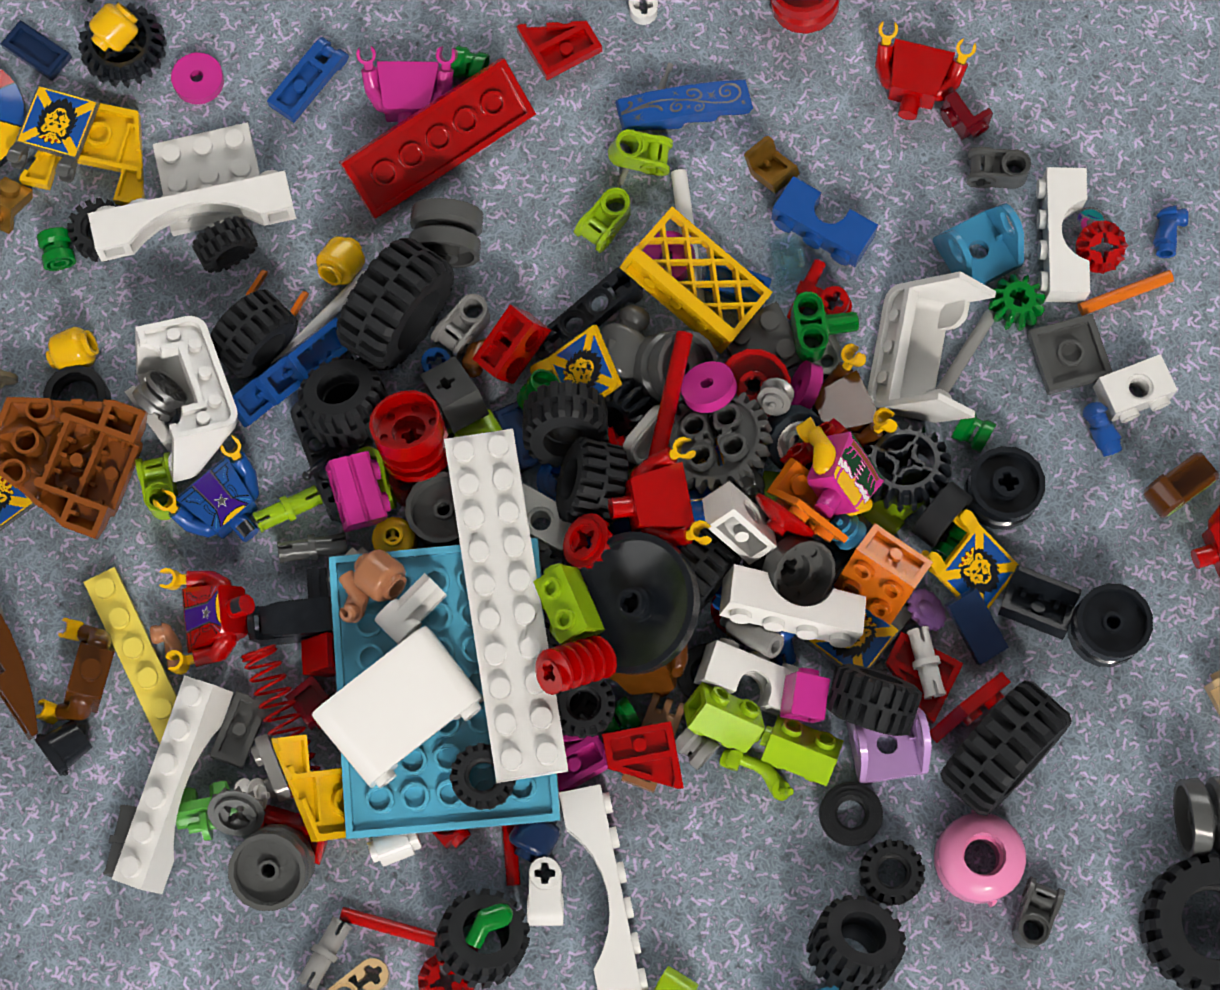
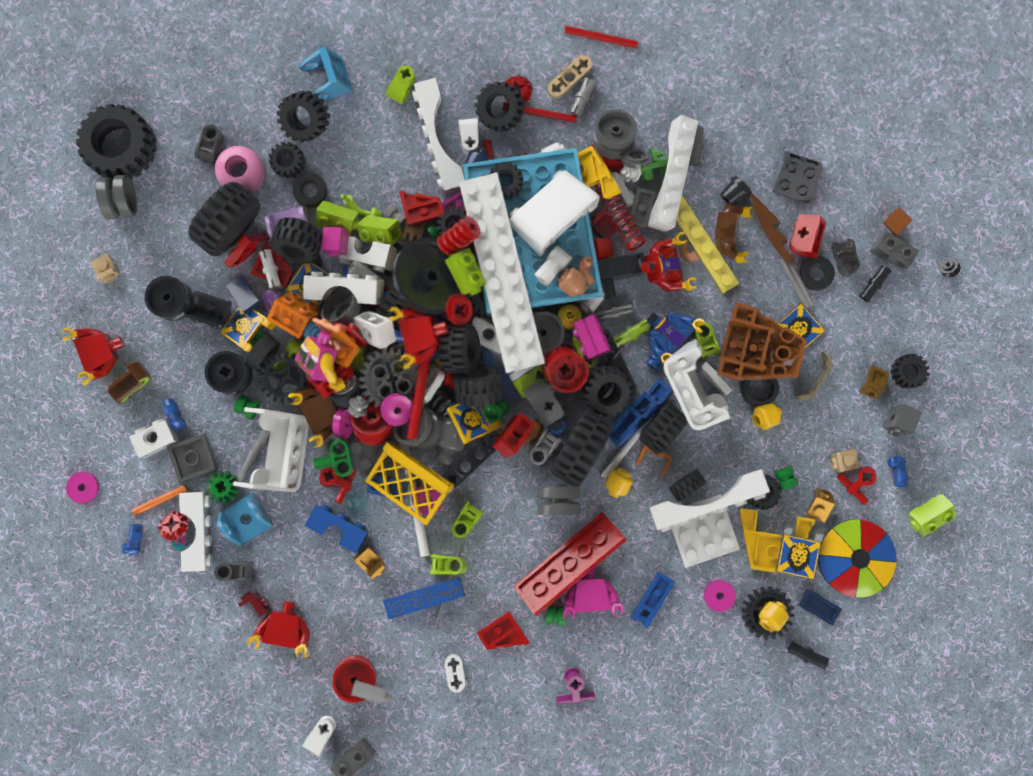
camera: 170 degrees right, 10 degrees up
(159, 395) = (712, 385): flat silver wheel -> none
(256, 455) = (653, 362): none -> blue bush
(488, 920) = (495, 109): green arm -> none

